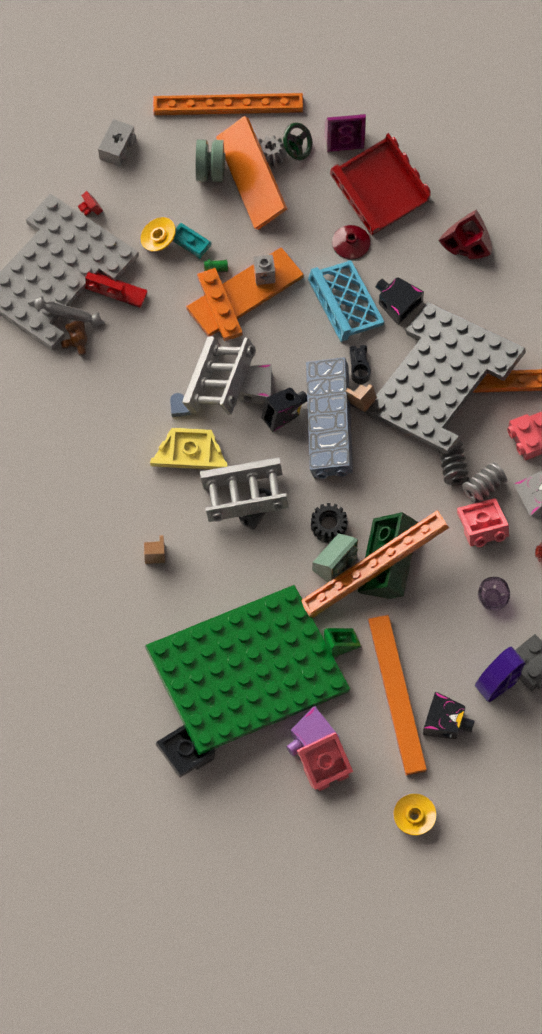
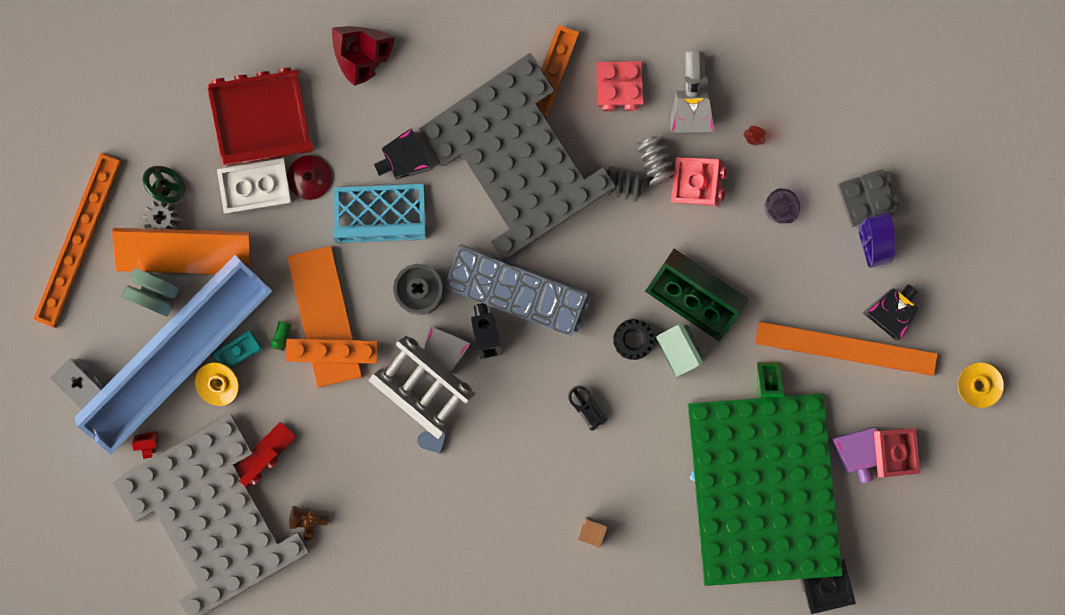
camera: 70 degrees left, 20 degrees up
(67, 311) = (274, 520): light grey wheel -> none
(168, 193) = (172, 355): none -> light blue piece
(189, 450) = (491, 450): light yellow wing -> none
(243, 473) = (544, 420): light grey fence -> none
(262, 266) = (313, 287): light grey brick -> none
(296, 345) = (415, 276): none -> dark grey wheel
(325, 204) = (254, 186): none -> white plate
(345, 132) = (176, 128): magenta slope -> none
(359, 362) = (460, 231): black piece -> none
(362, 396) = (510, 246): medium nougat panel -> none
(374, 564) = (709, 314): orange tile -> none

